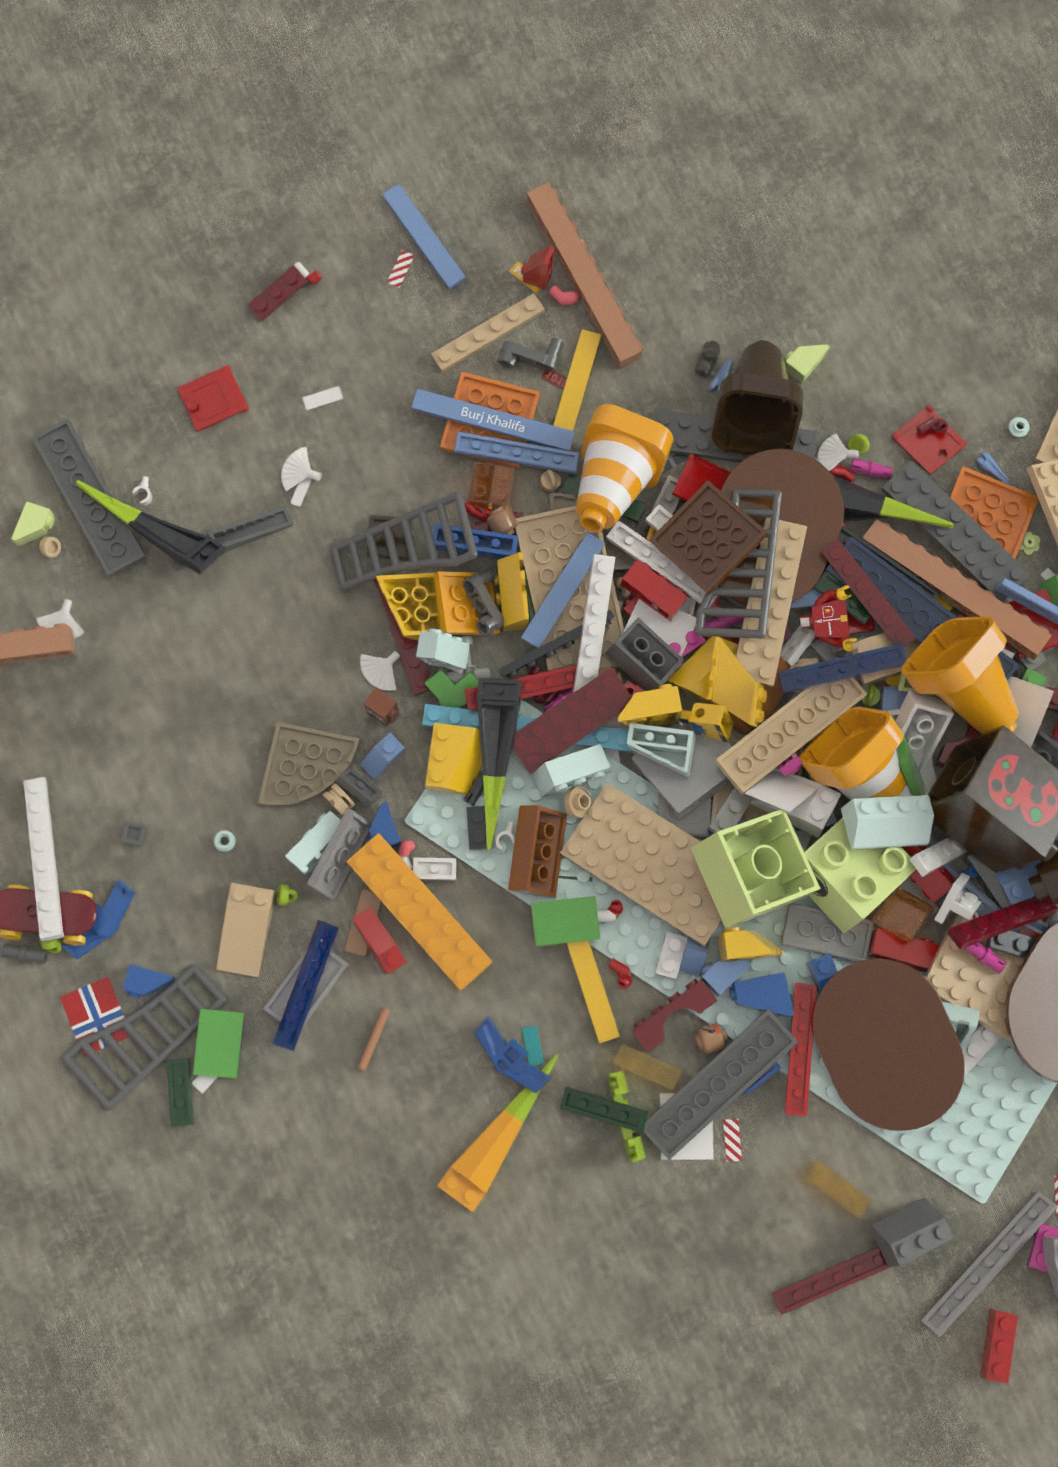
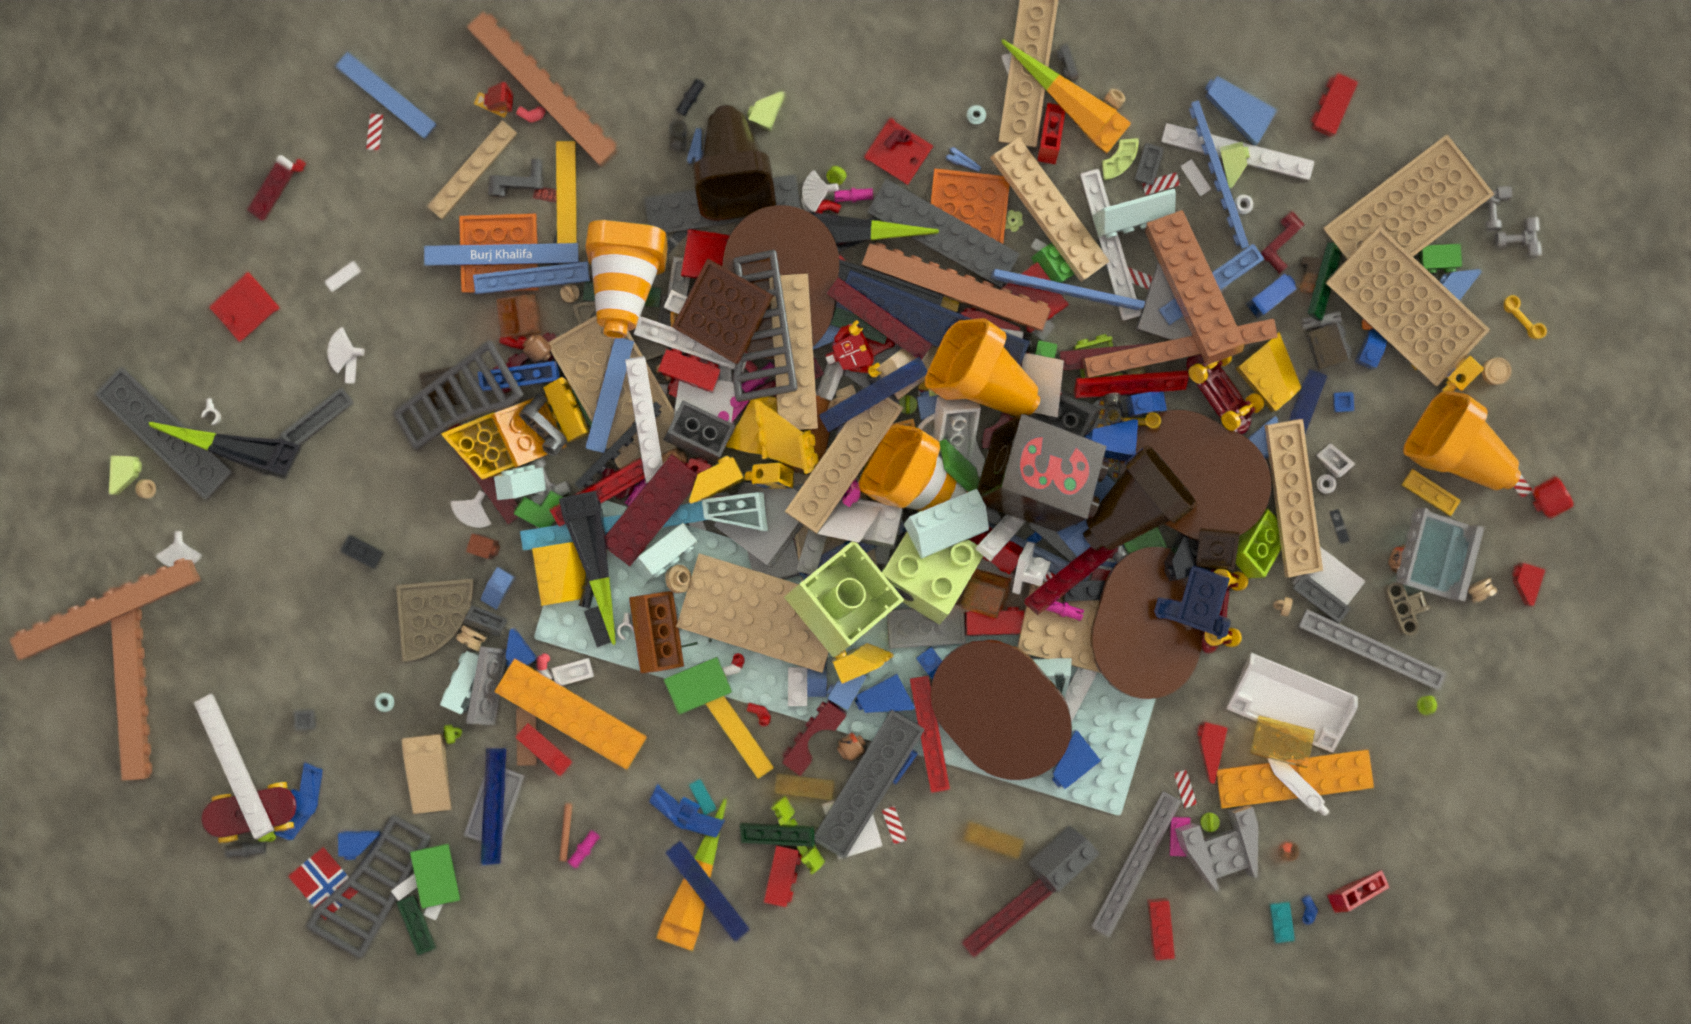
camera: 15 degrees left, 10 degrees up
(182, 1046) = (405, 887): none -> white sticker
(252, 677) = (362, 551): none -> black plate
(387, 1063) = (583, 849): none -> dark pink pin
(509, 1149) = (707, 891): none -> clear blue tile
(596, 1157) = (782, 875): none -> red brick
(731, 326) = (690, 97): none -> black pin
(952, 1128) = (1075, 762): none -> blue slope

